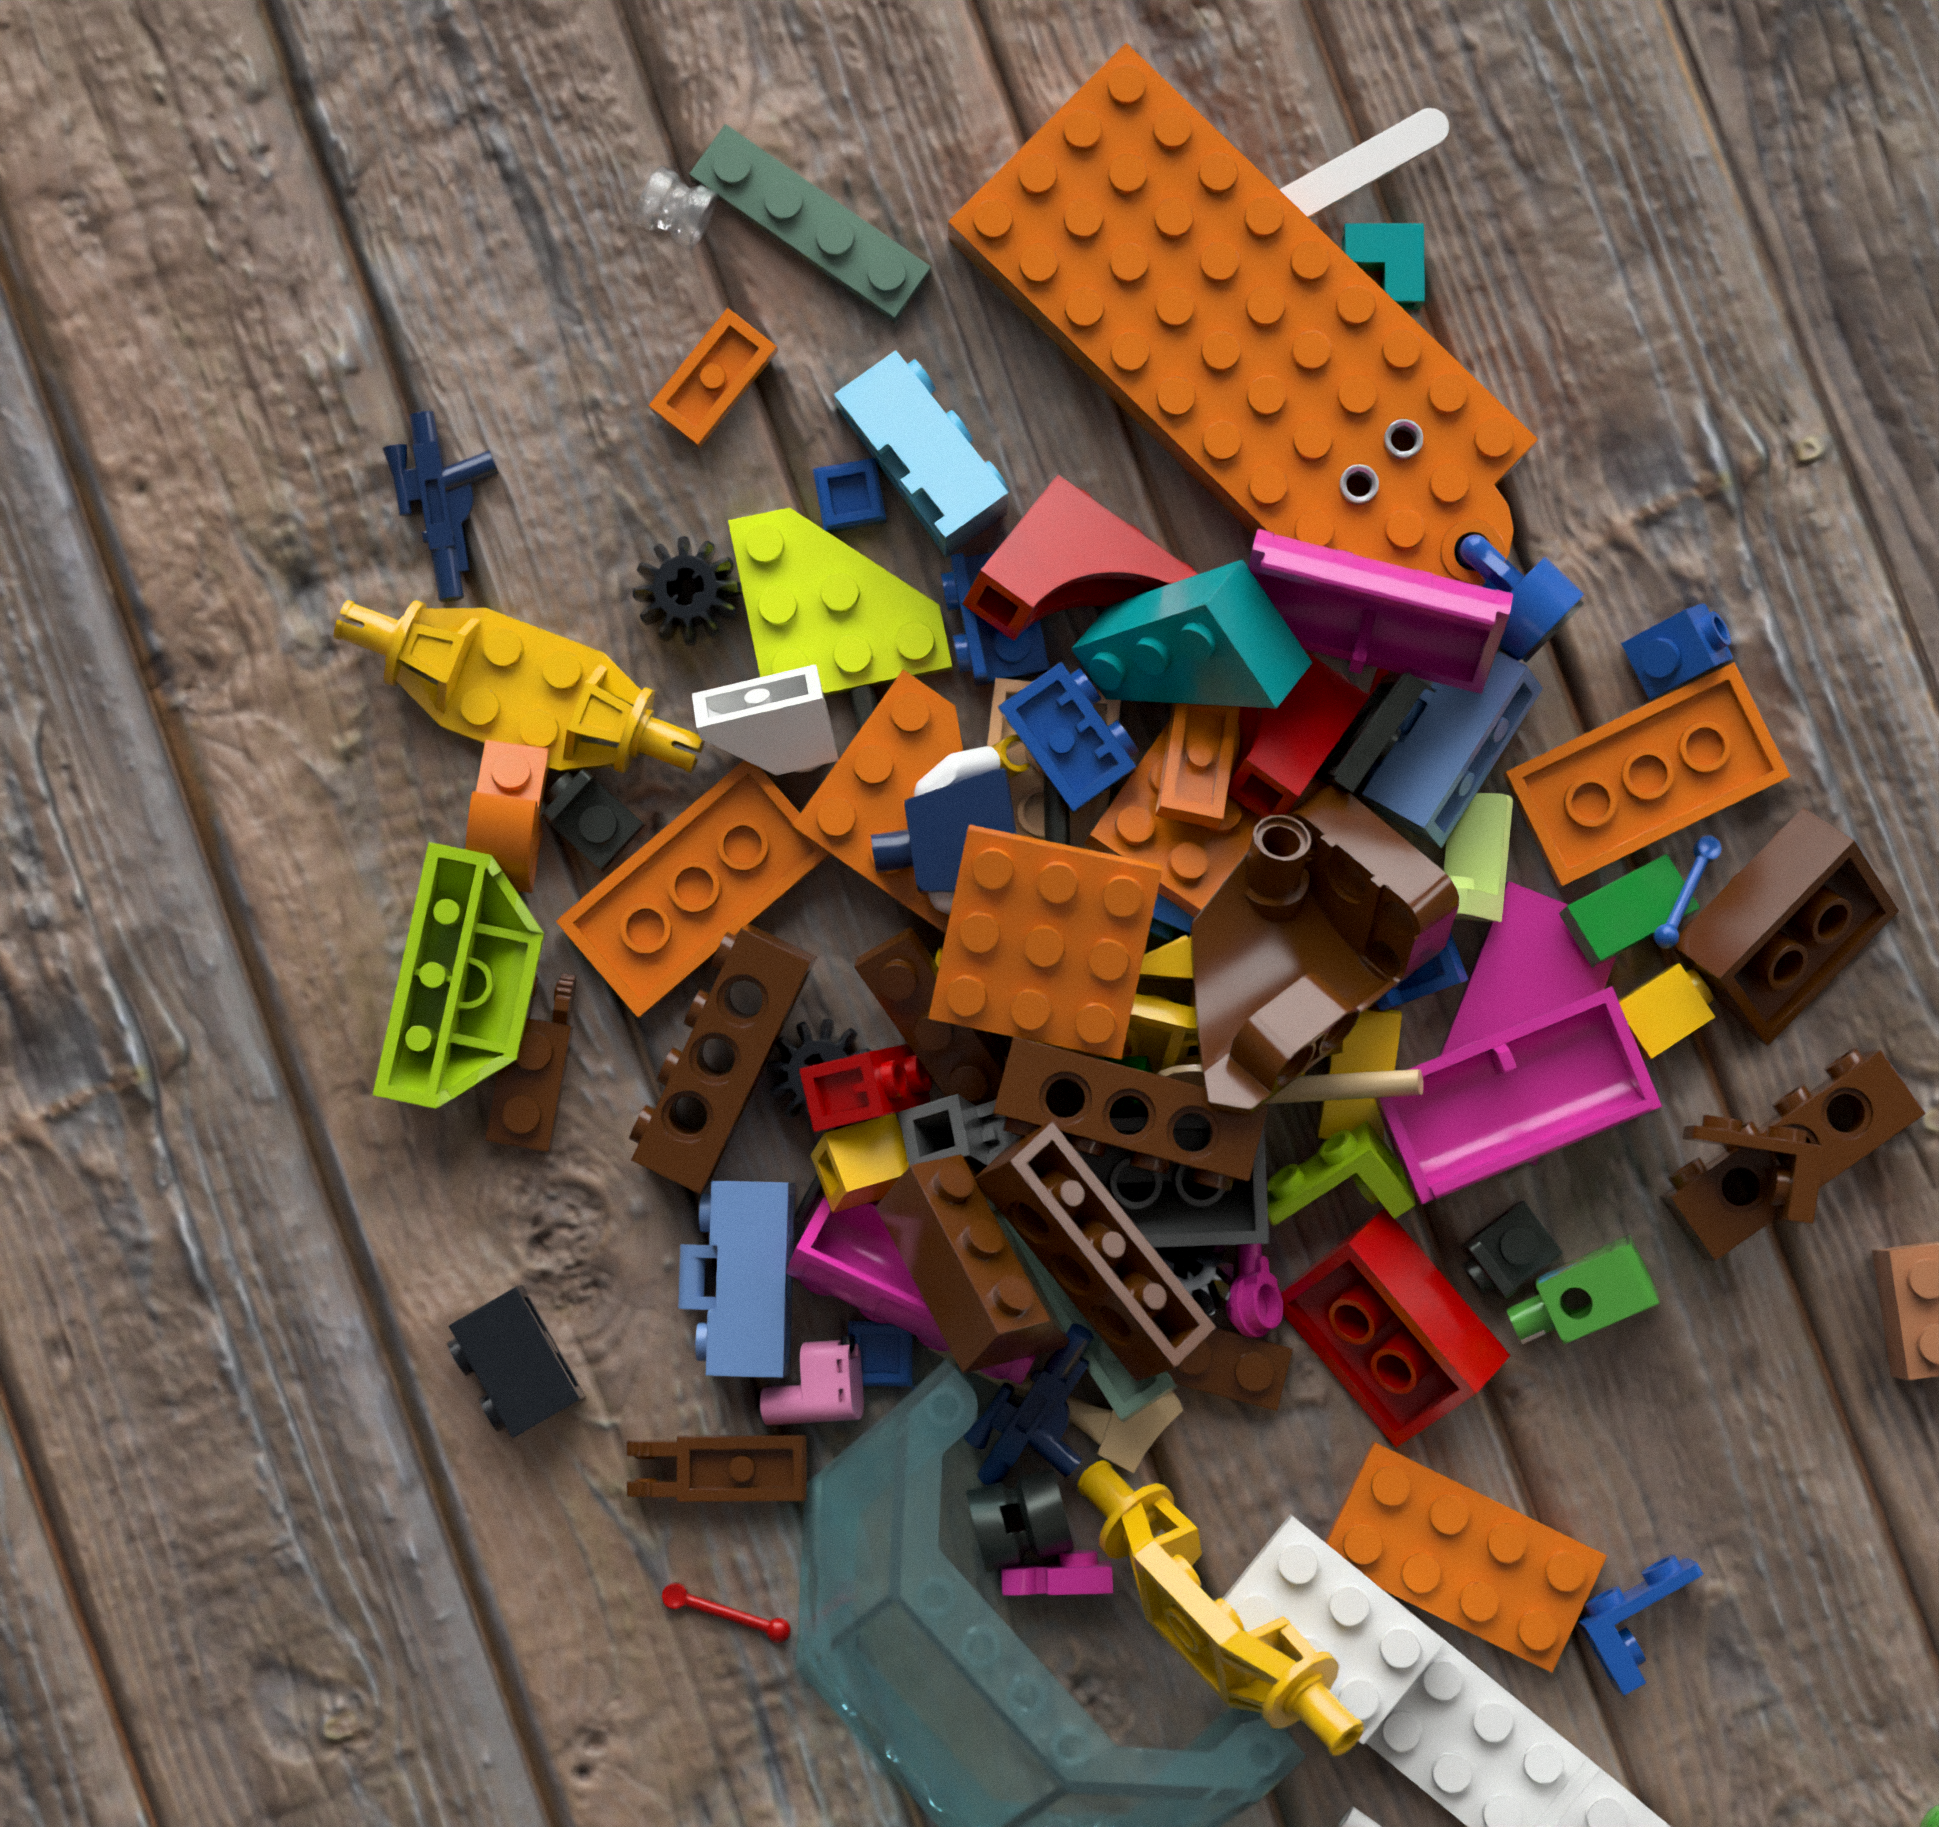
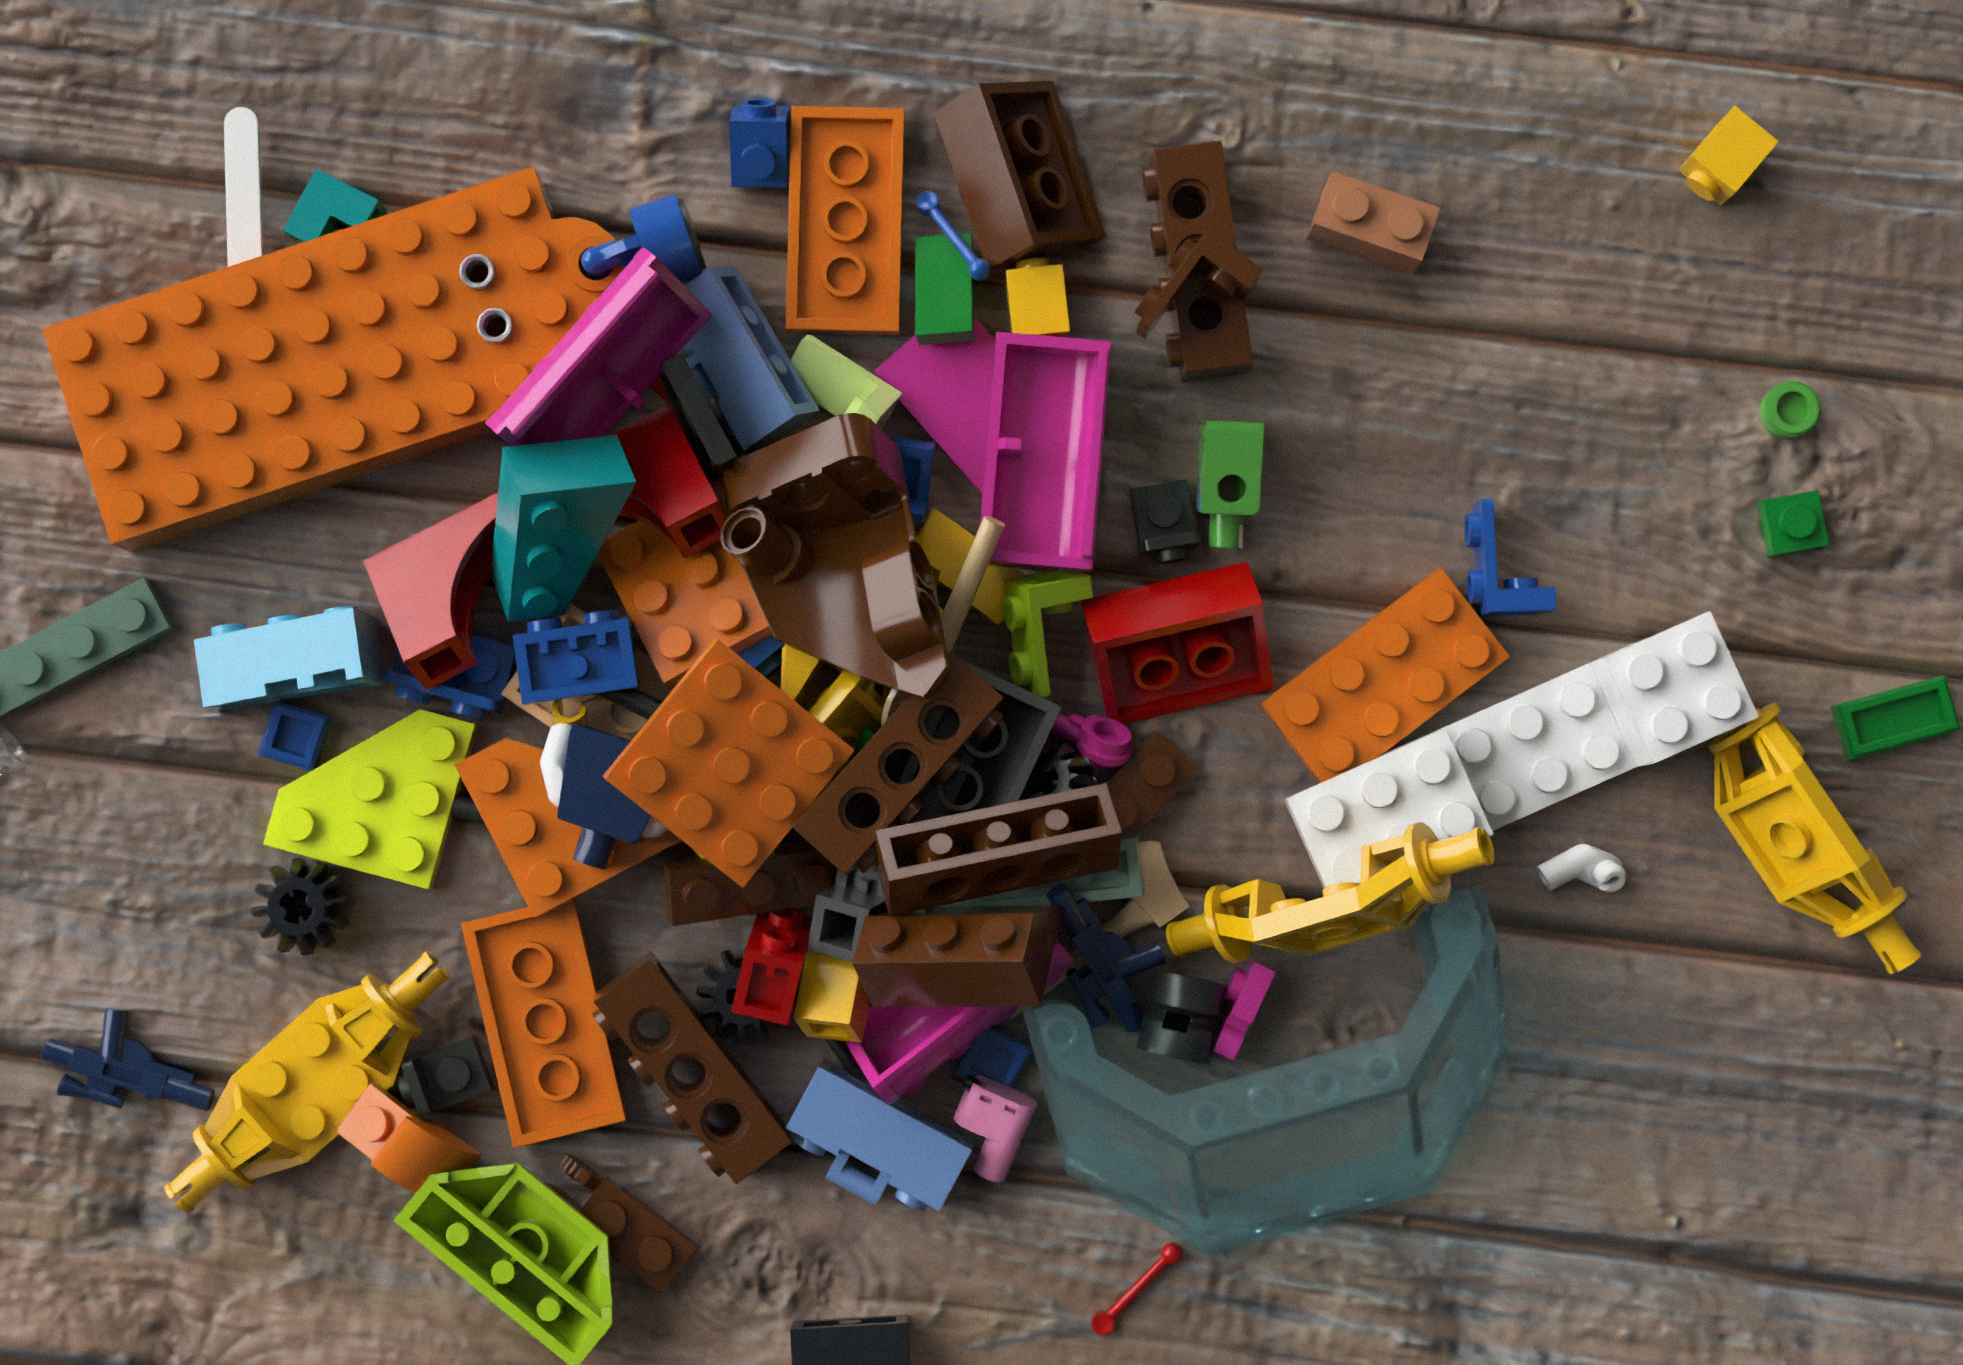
camera: 65 degrees left, 0 degrees up
(713, 378) = (141, 797): orange plate -> none
(726, 1468) = (1022, 1230): reddish brown hinge -> none
(770, 721) = (441, 892): white slope -> none
(1197, 763) = (650, 567): orange plate -> none

